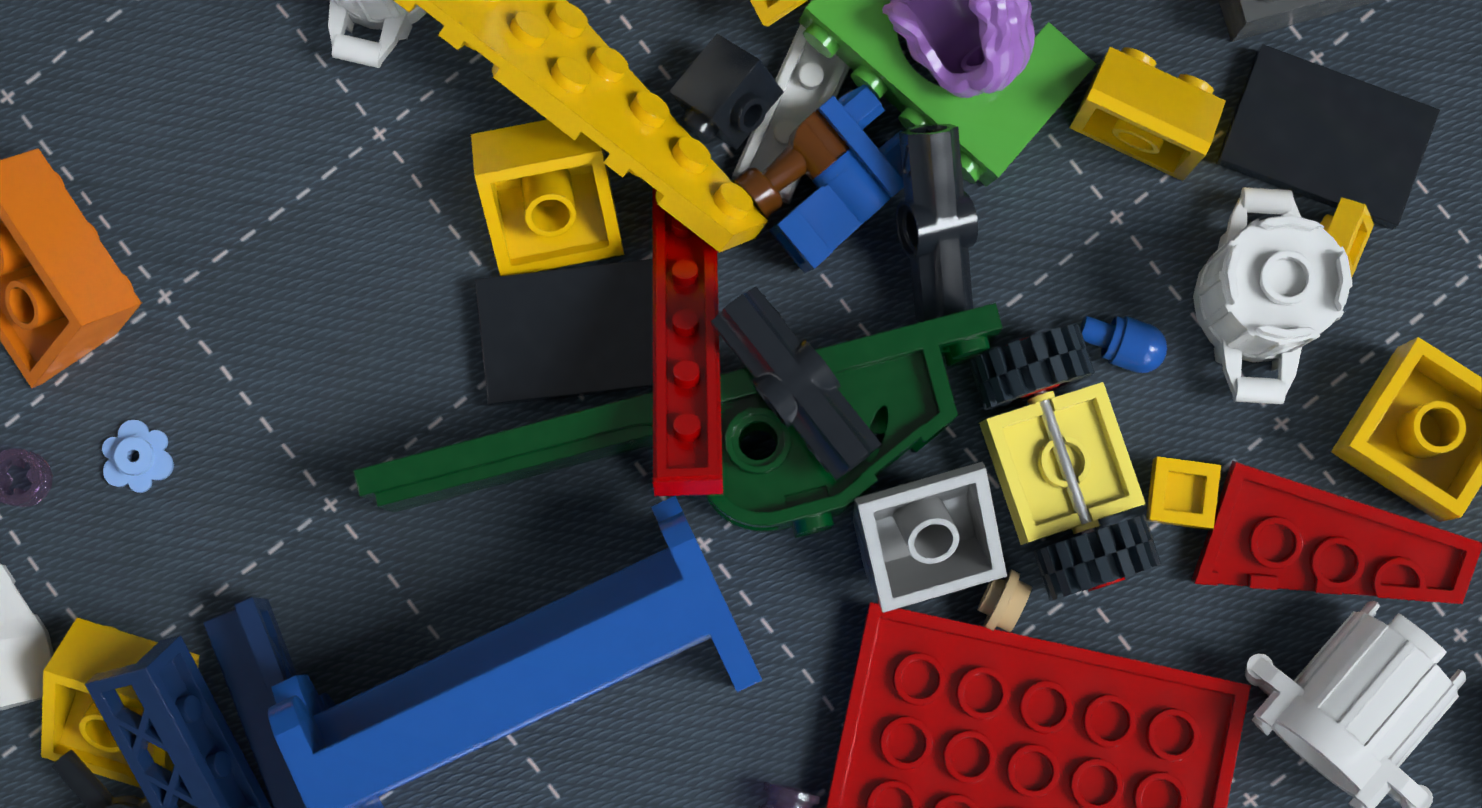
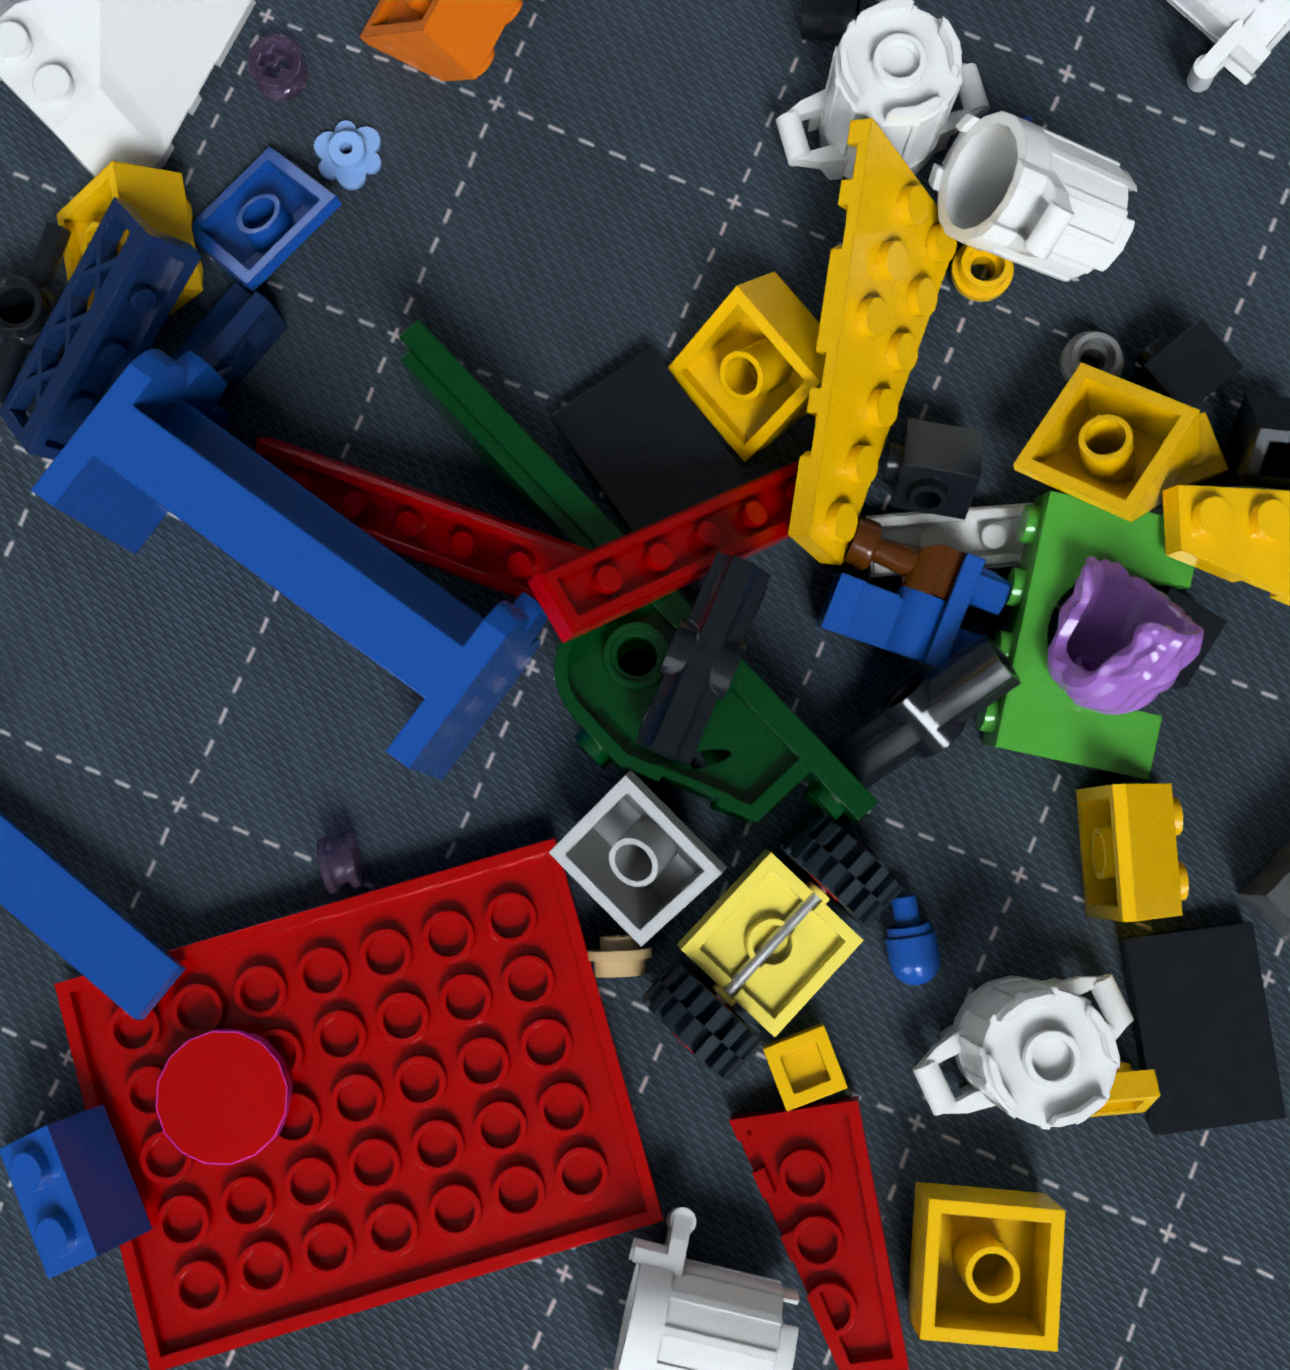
camera: 60 degrees right, 0 degrees up
(159, 565) = (262, 218): none -> blue slope
(535, 563) = (423, 524): none -> red tile

